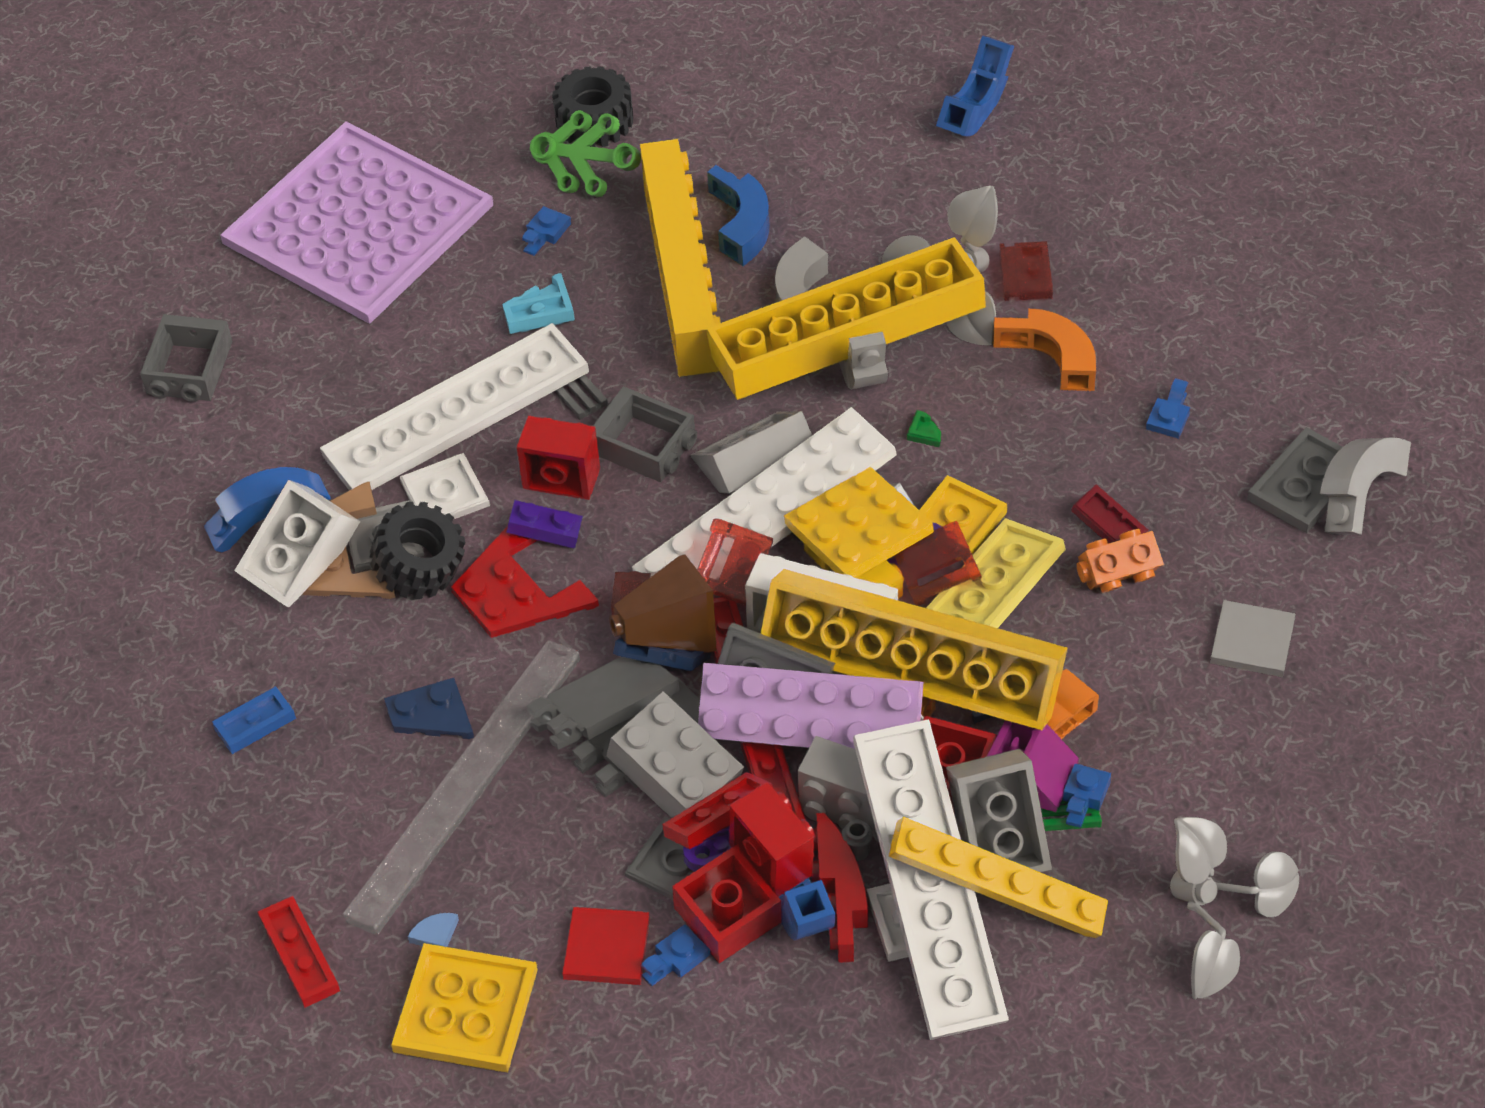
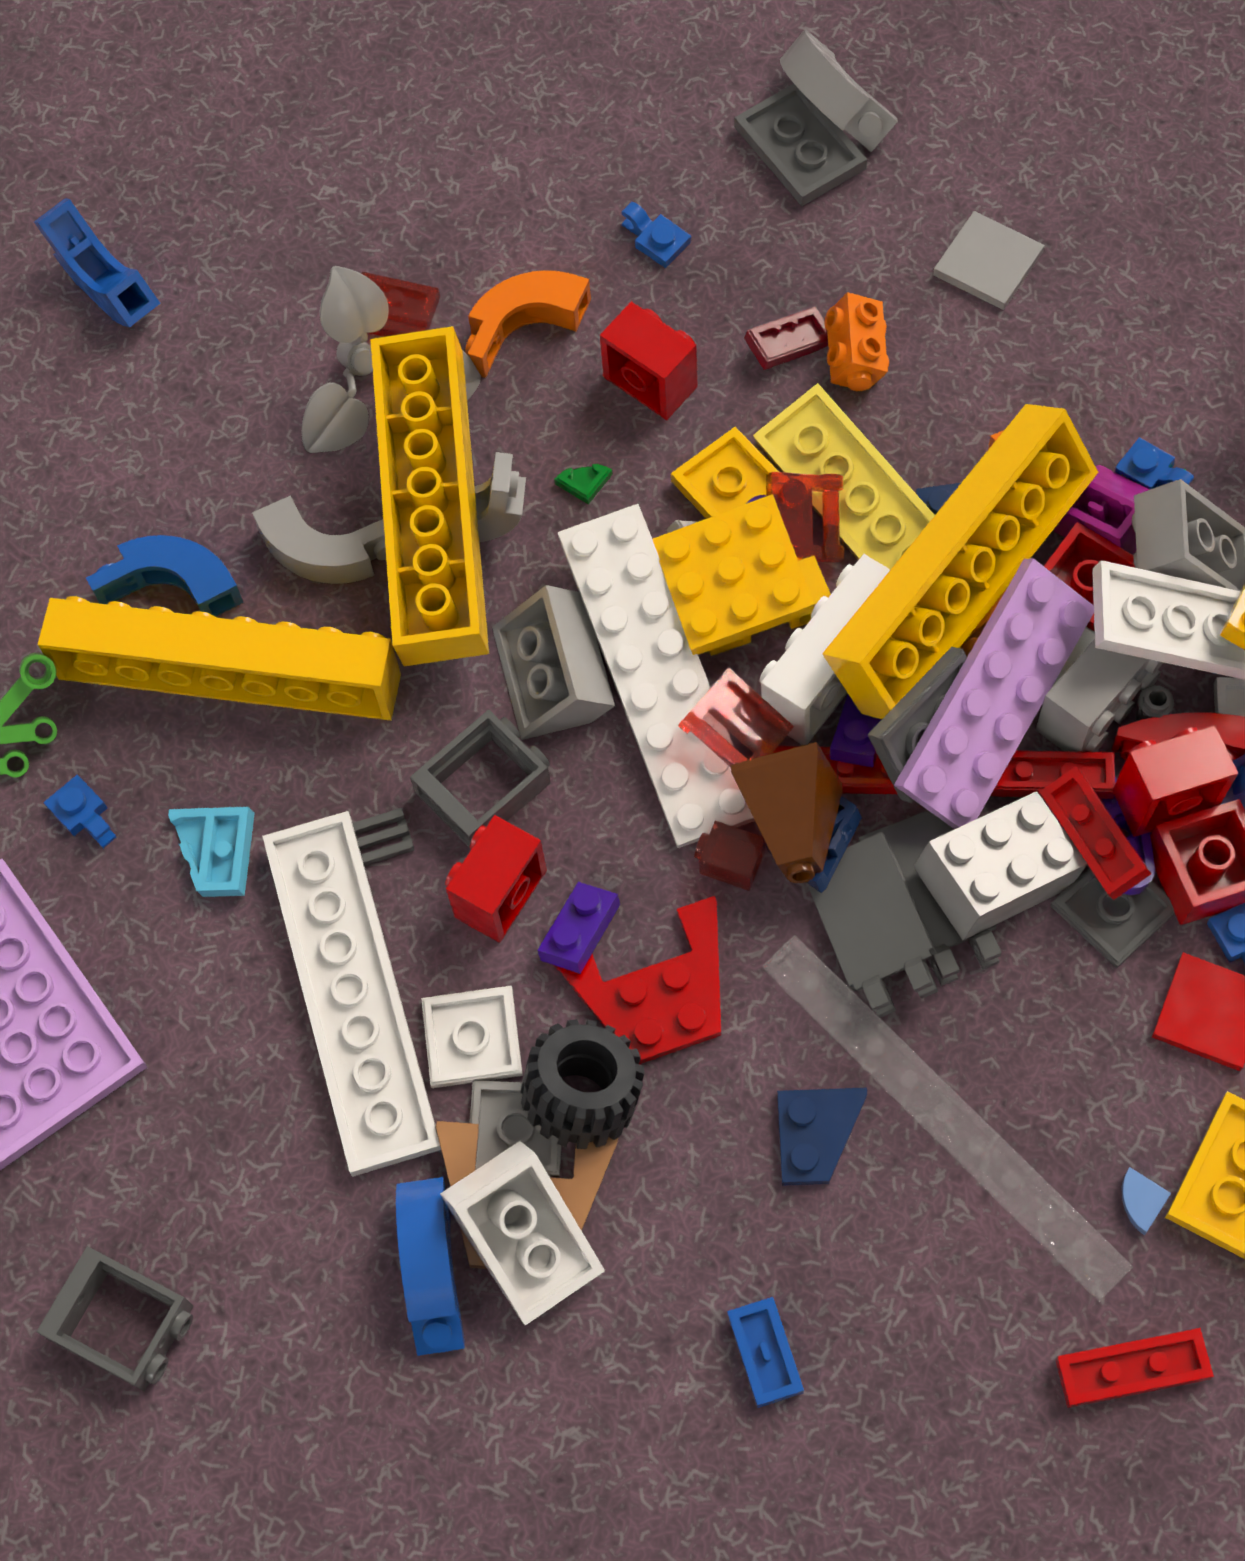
camera: 70 degrees left, 15 degrees up
(1036, 427) = (649, 360): none -> red brick

